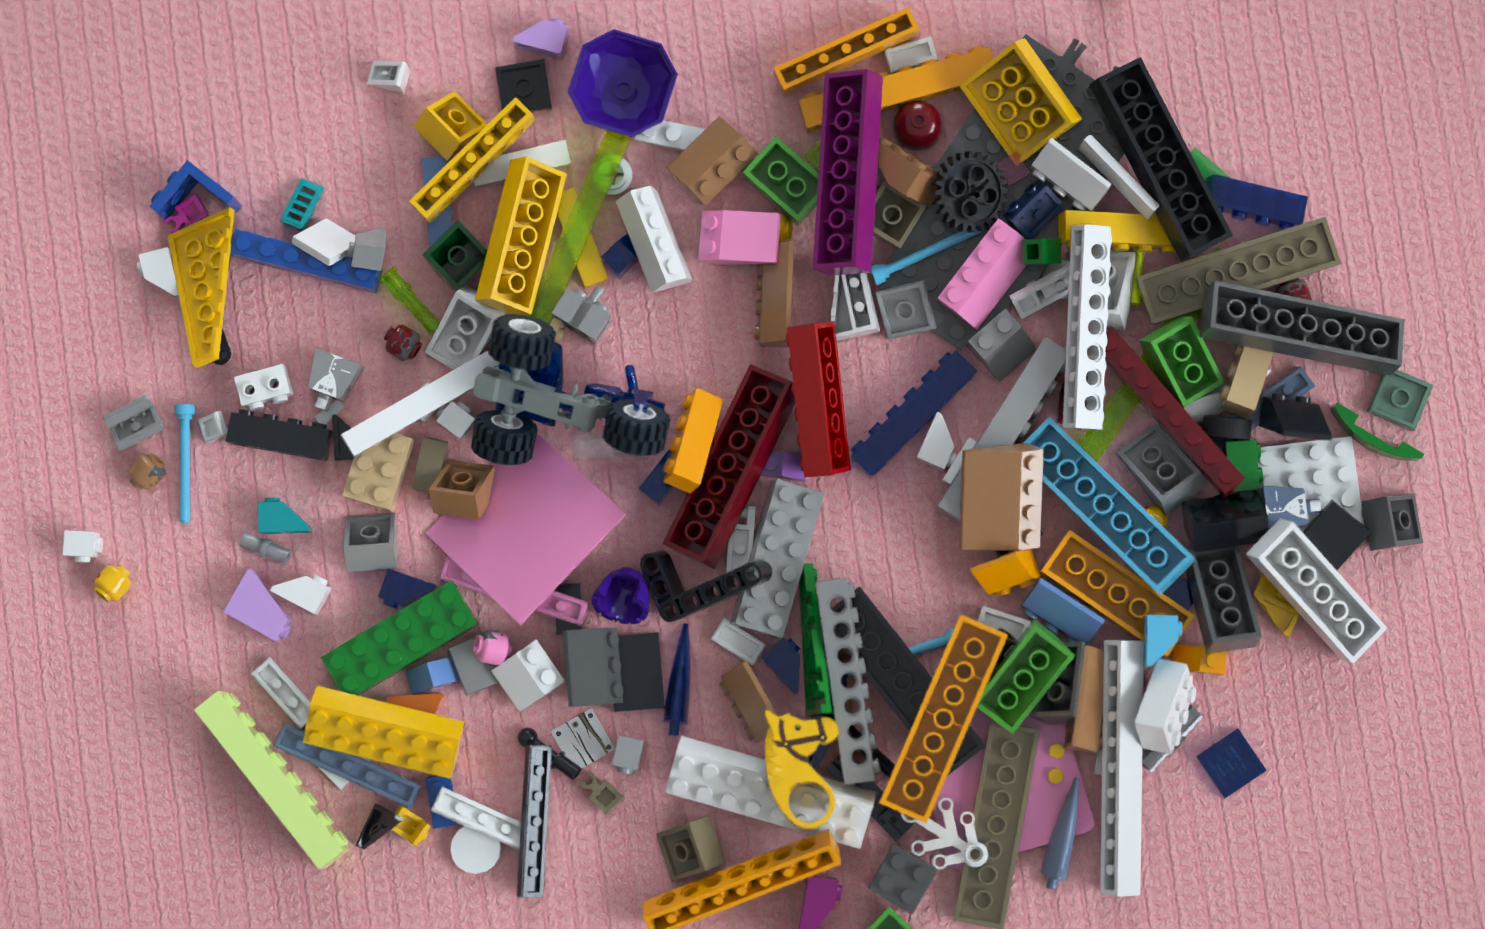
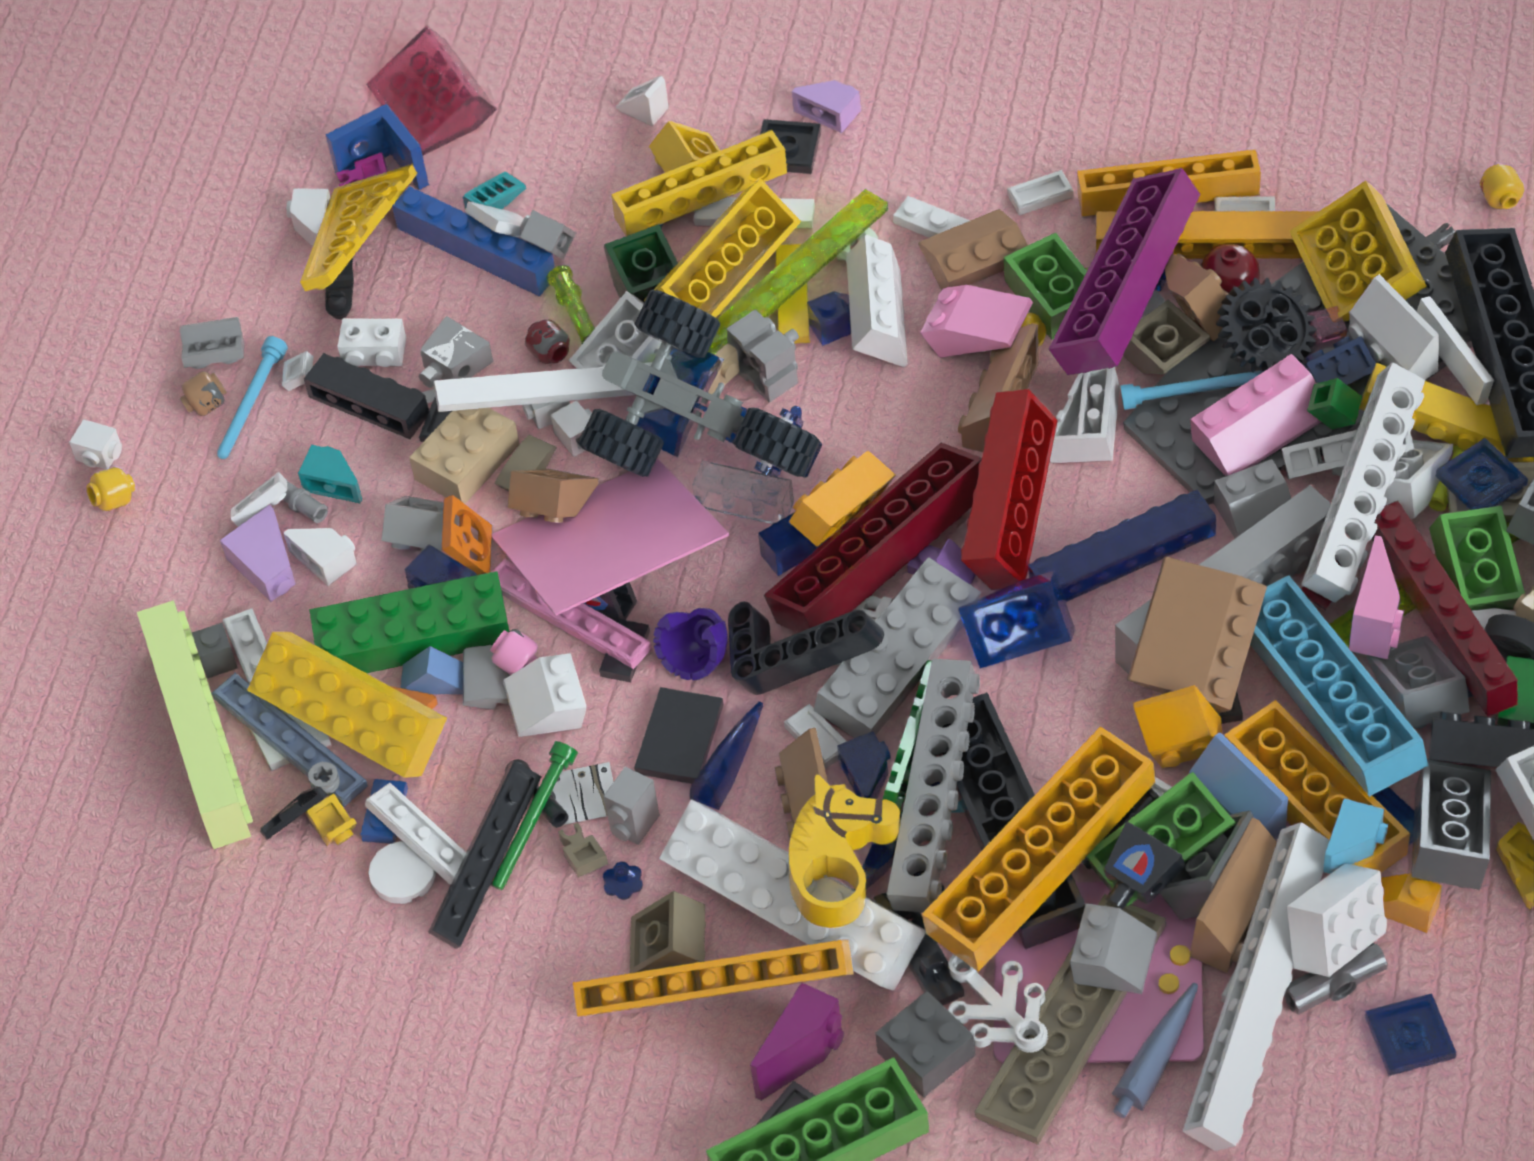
camera: 20 degrees right, 30 degrees down
(209, 116) = (432, 91): none -> clear pink slope
(236, 562) = (268, 493): none -> white plate
(258, 706) = (214, 650): none -> dark grey brick
(391, 790) = (330, 771): none -> light grey bush
(404, 555) = (453, 540): none -> orange piece
(562, 731) = (561, 757): none -> green piece
(592, 667) = (626, 703): dark grey slope -> none
(622, 83) = (897, 146): dark purple rock -> none
(643, 798) = (622, 880): none -> clear blue plant
(743, 80) = (1040, 192): none -> white tile
(860, 507) = (1018, 620): none -> clear blue slope
(906, 309) = (1150, 440): light grey tile -> none
(937, 446) = (1136, 583): white slope -> none
(1014, 772) = (1112, 950): none -> light grey slope
(1018, 711) = (1140, 867): none -> black torso
(1122, 429) = (1376, 612): none -> bright pink slope
(1167, 284) = (1481, 476): none -> clear blue tile

